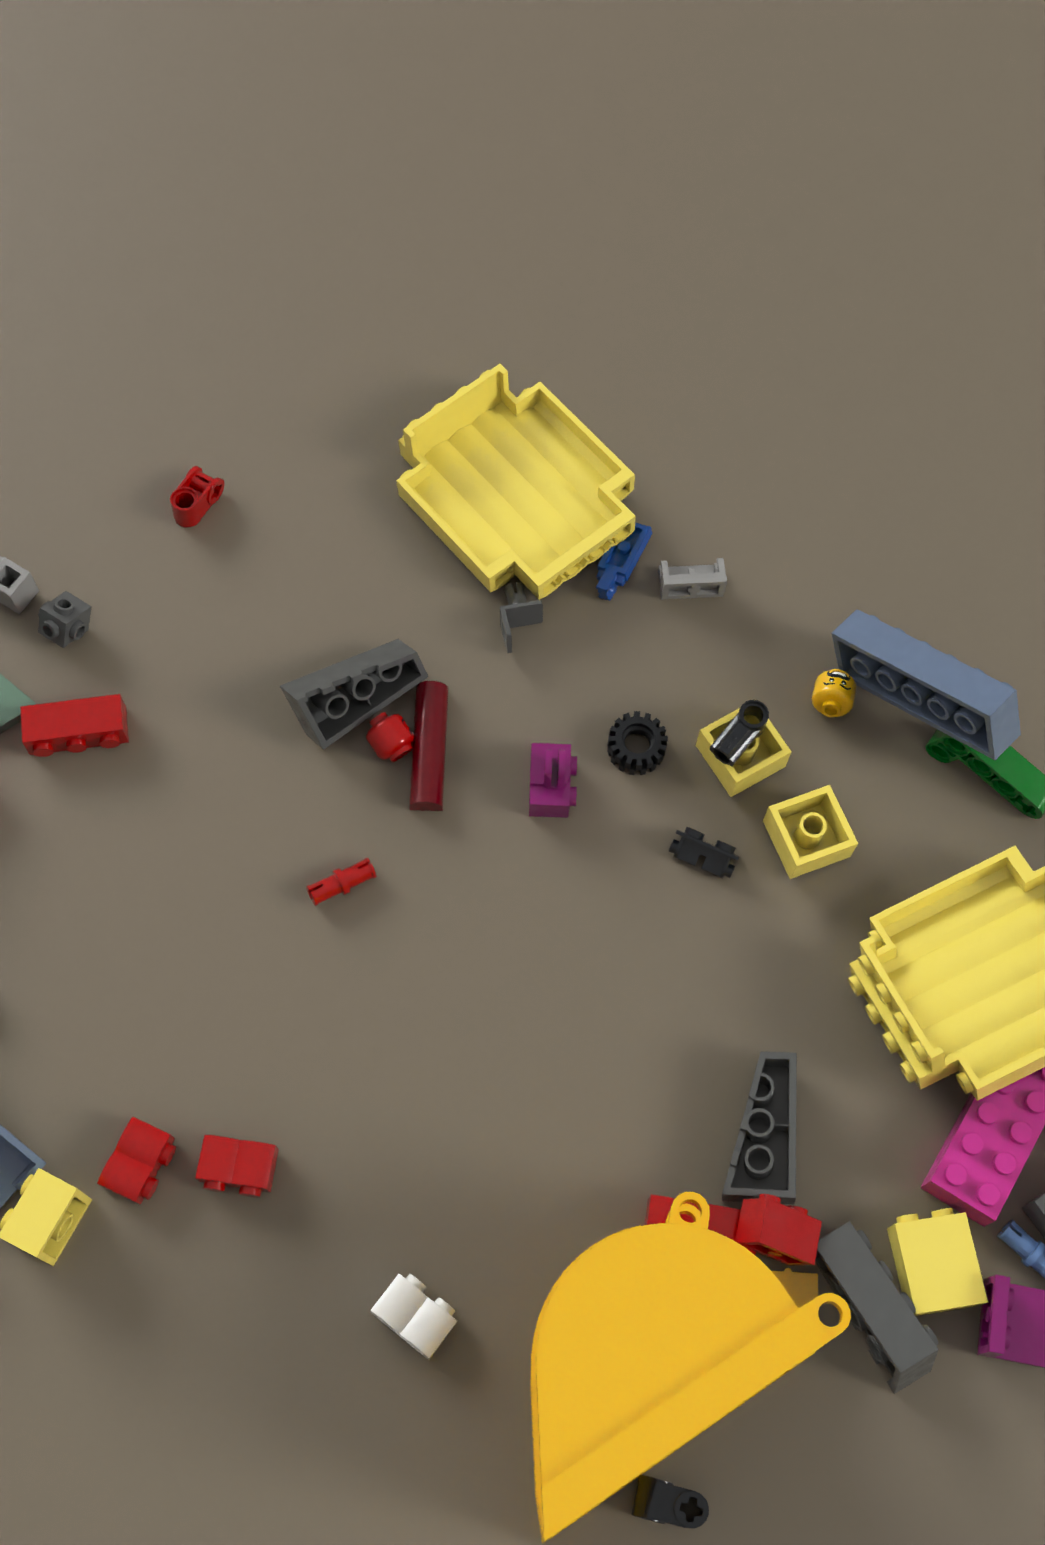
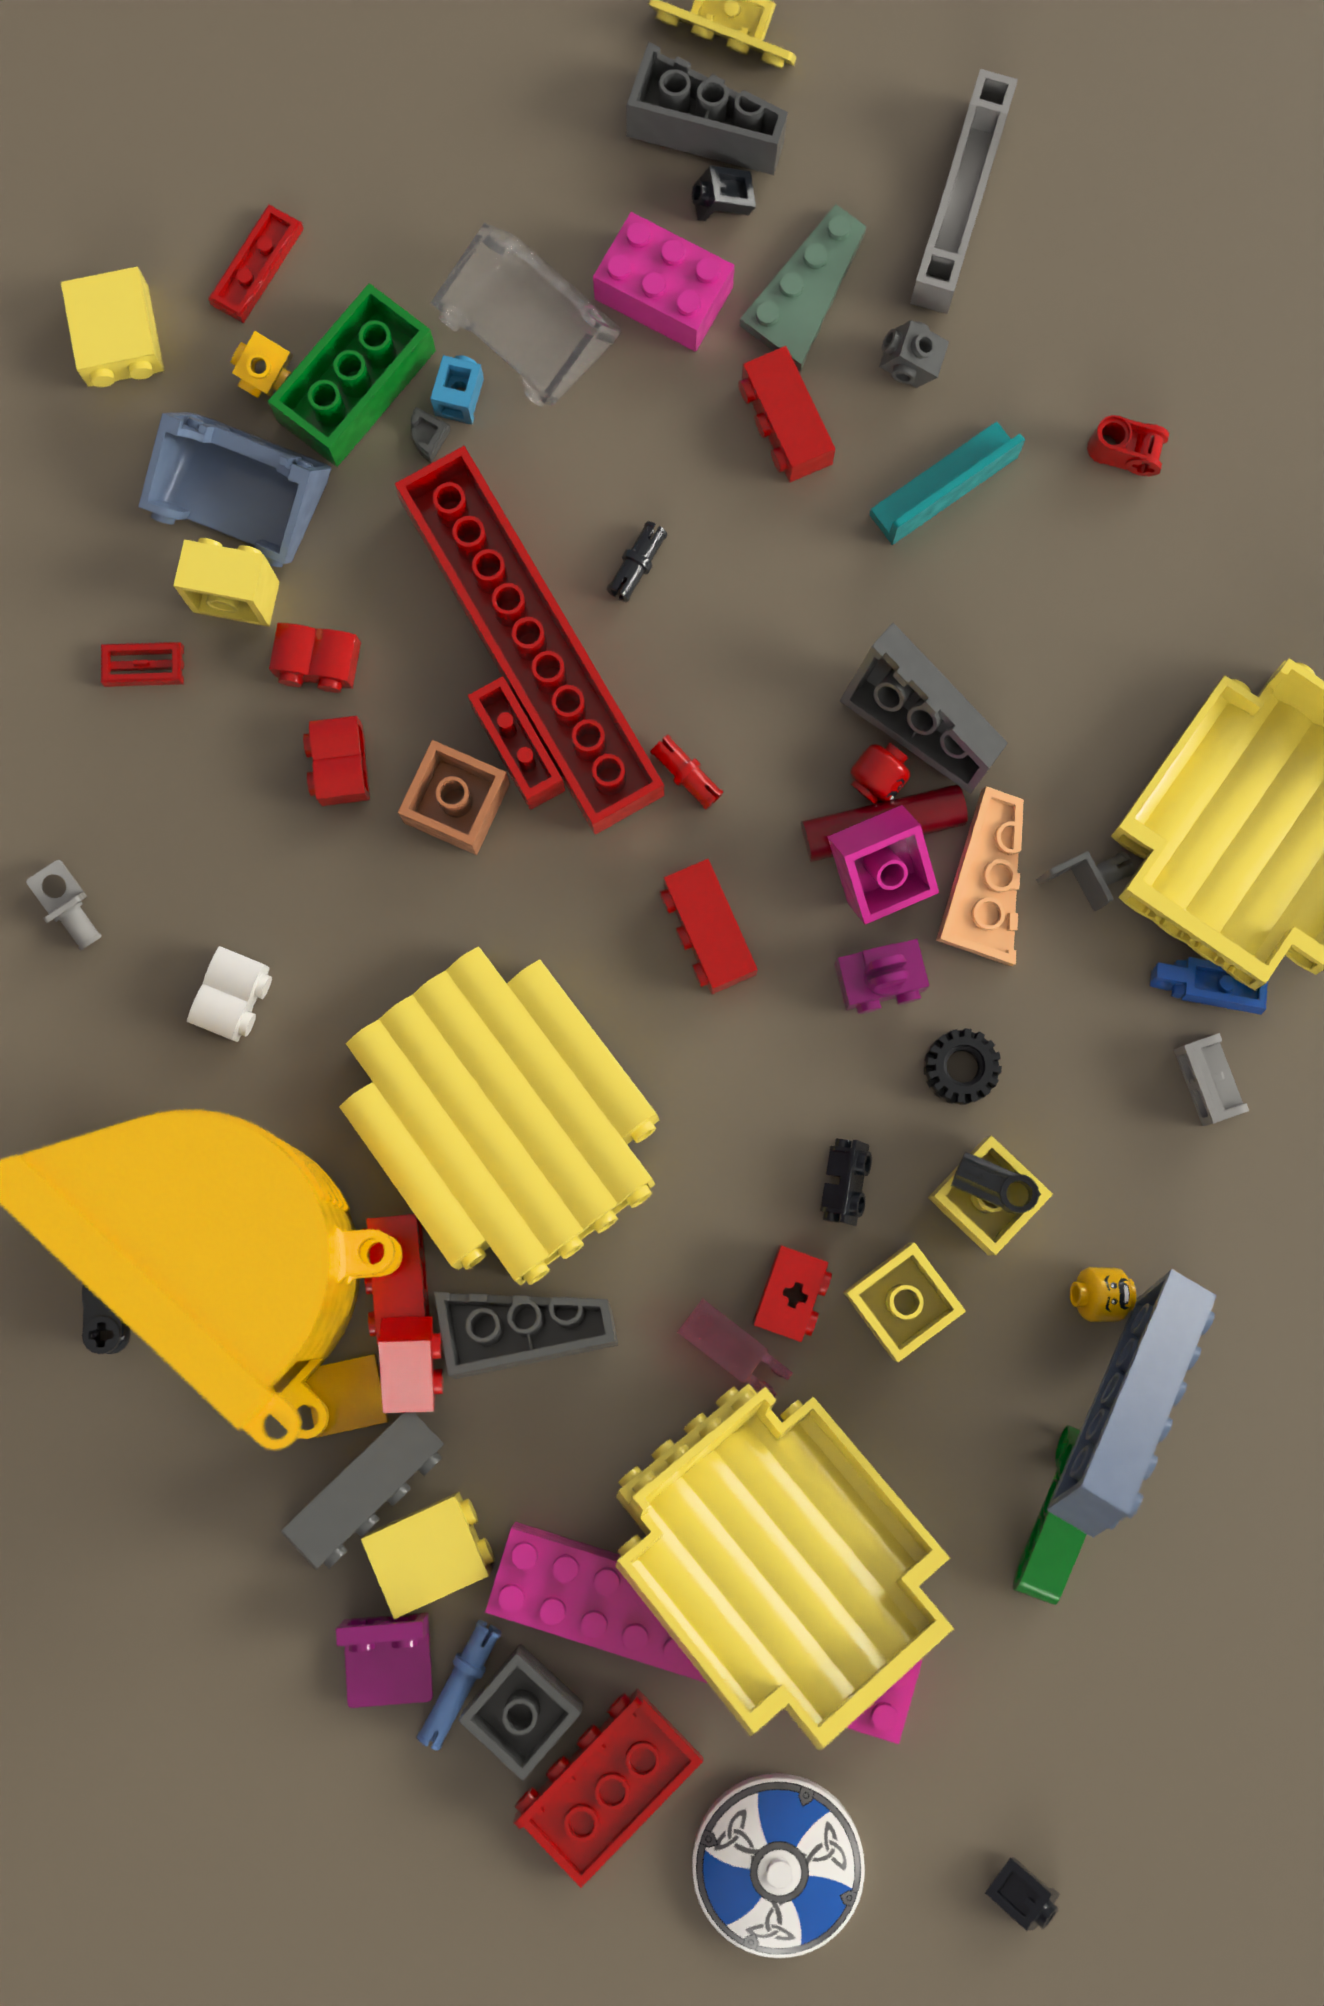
camera: 80 degrees right, 15 degrees up
(97, 1291) = (175, 664): none -> red tile
(151, 873) = (637, 561): none -> black pin
(173, 629) = (946, 482): none -> teal panel
(185, 973) = (530, 640): none -> red brick
(273, 1006) = (516, 743): none -> red brick
(288, 1452) = (66, 907): none -> light grey bracket
(304, 1070) = (454, 797): none -> nougat brick
(466, 750) = (883, 864): none -> dark pink brick
(474, 898) = (708, 927): none -> red brick
(509, 693) = (984, 890): none -> light nougat wing
(586, 1103) = (500, 1116): none -> light yellow panel
(766, 910) = (787, 1268): none -> red brick
(814, 974) = (729, 1345): none -> clear pink hinge

